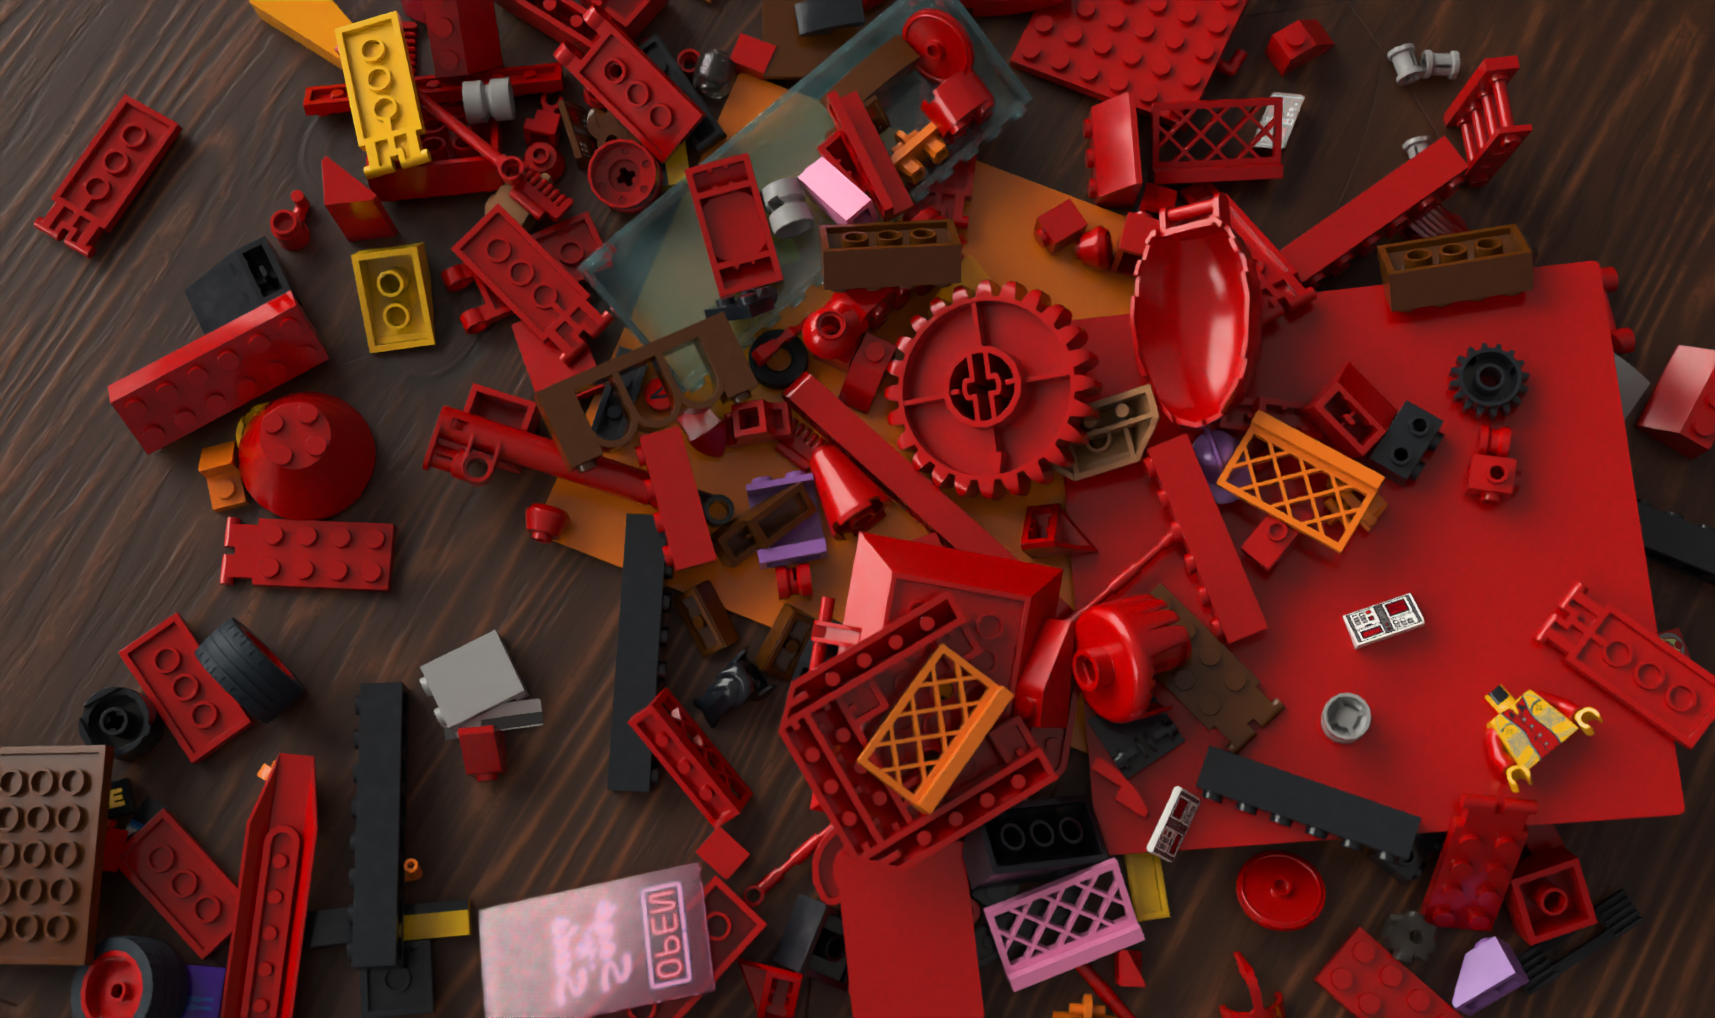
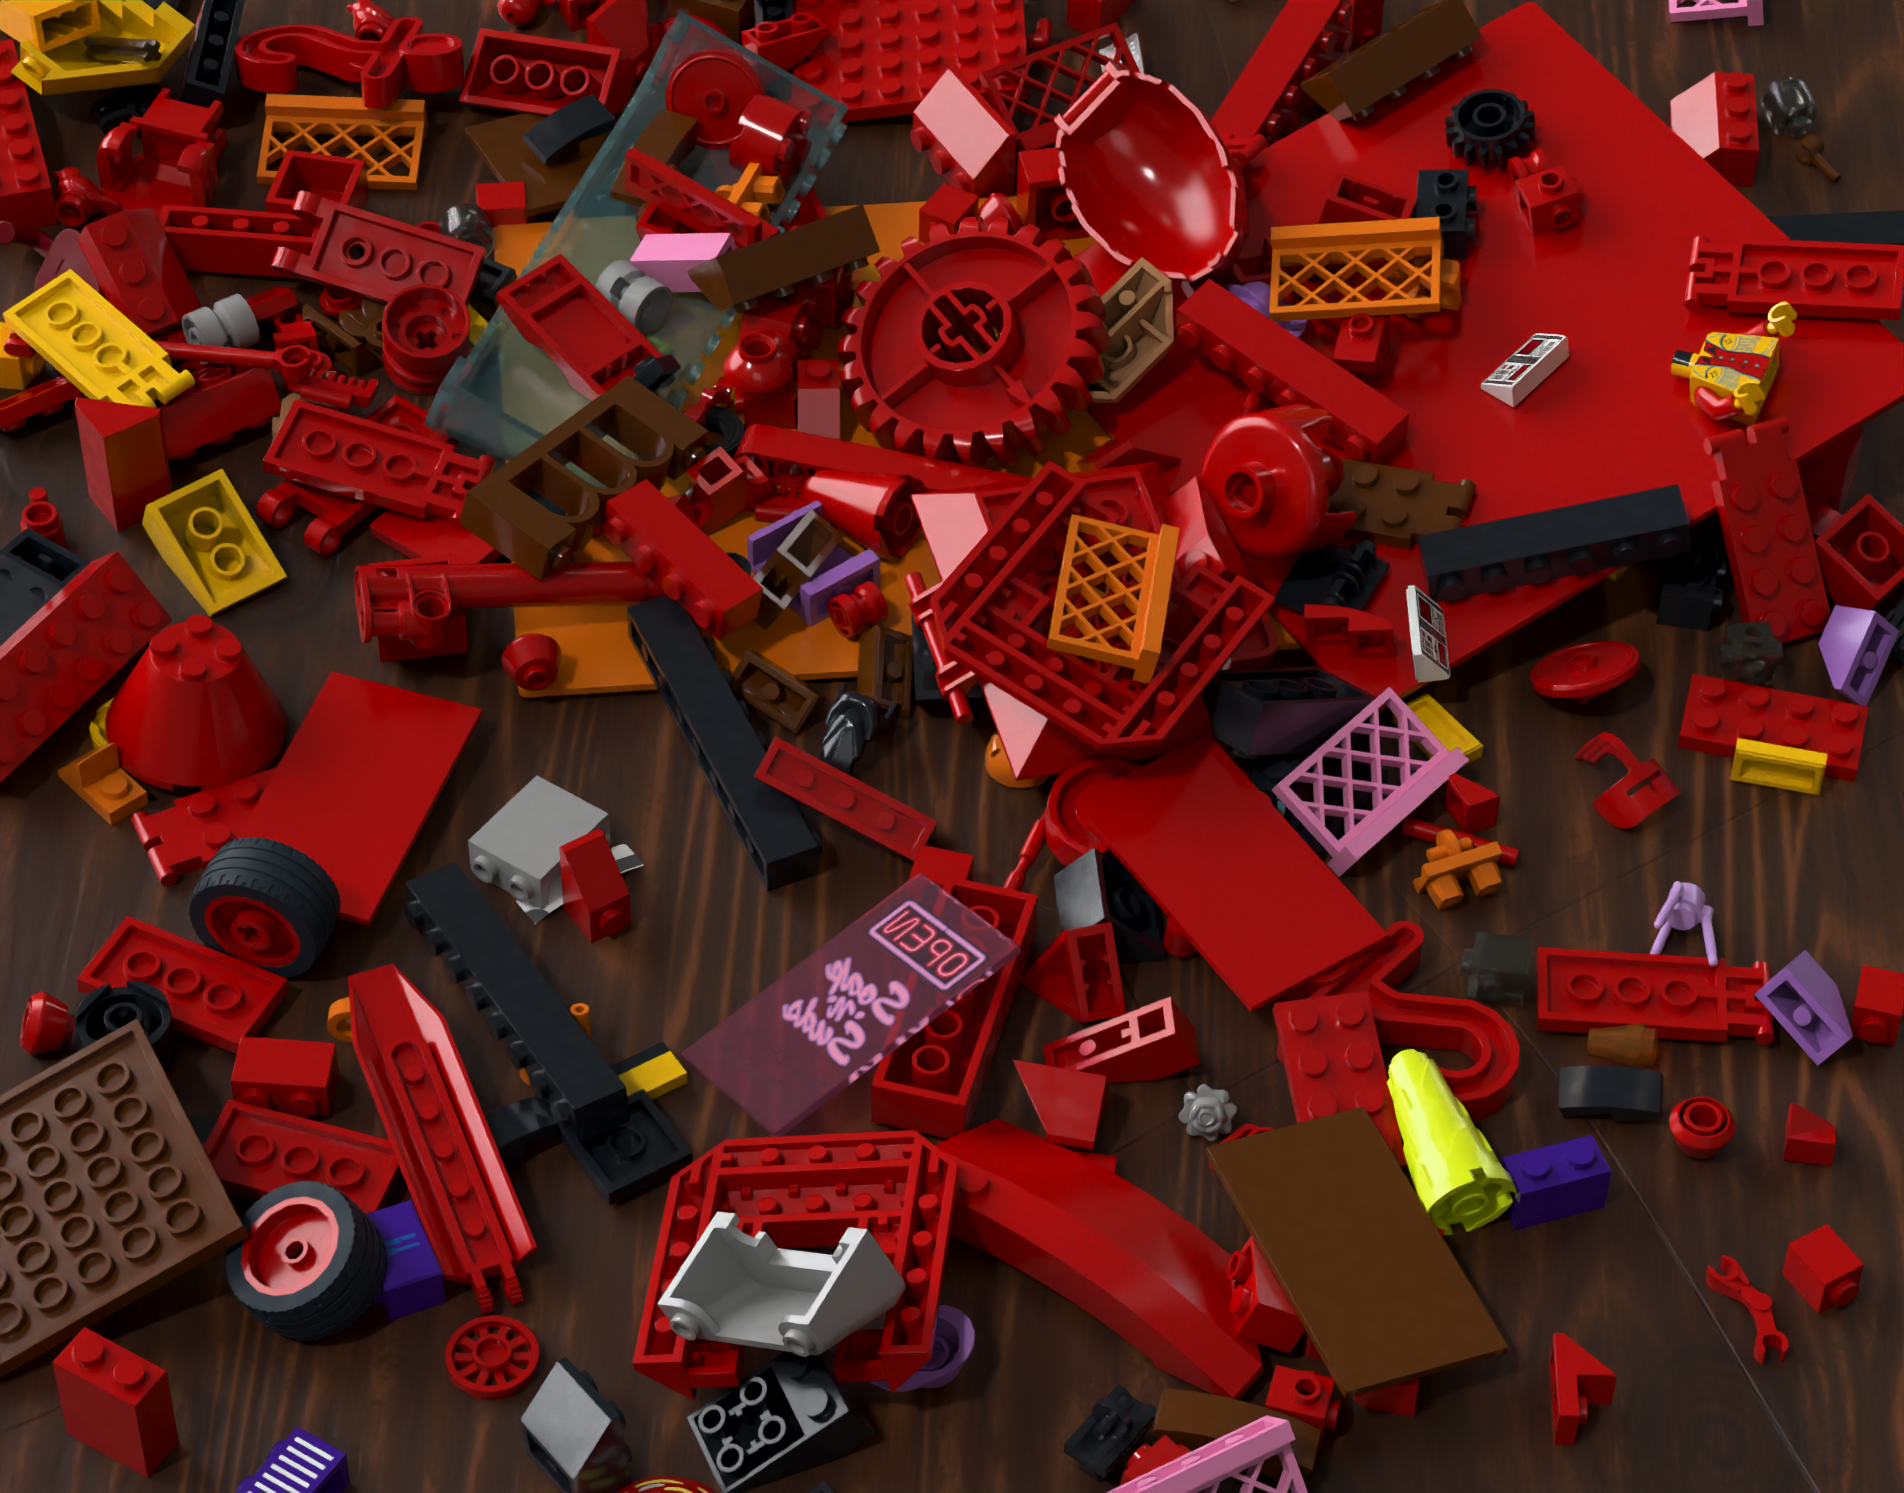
camera: 25 degrees left, 30 degrees down
(79, 682) = (45, 1024): none -> red cone
(208, 806) = (286, 1075): none -> red brick
(368, 580) = (362, 783): none -> red piece
(1345, 718) = (1543, 451): light grey wheel -> none

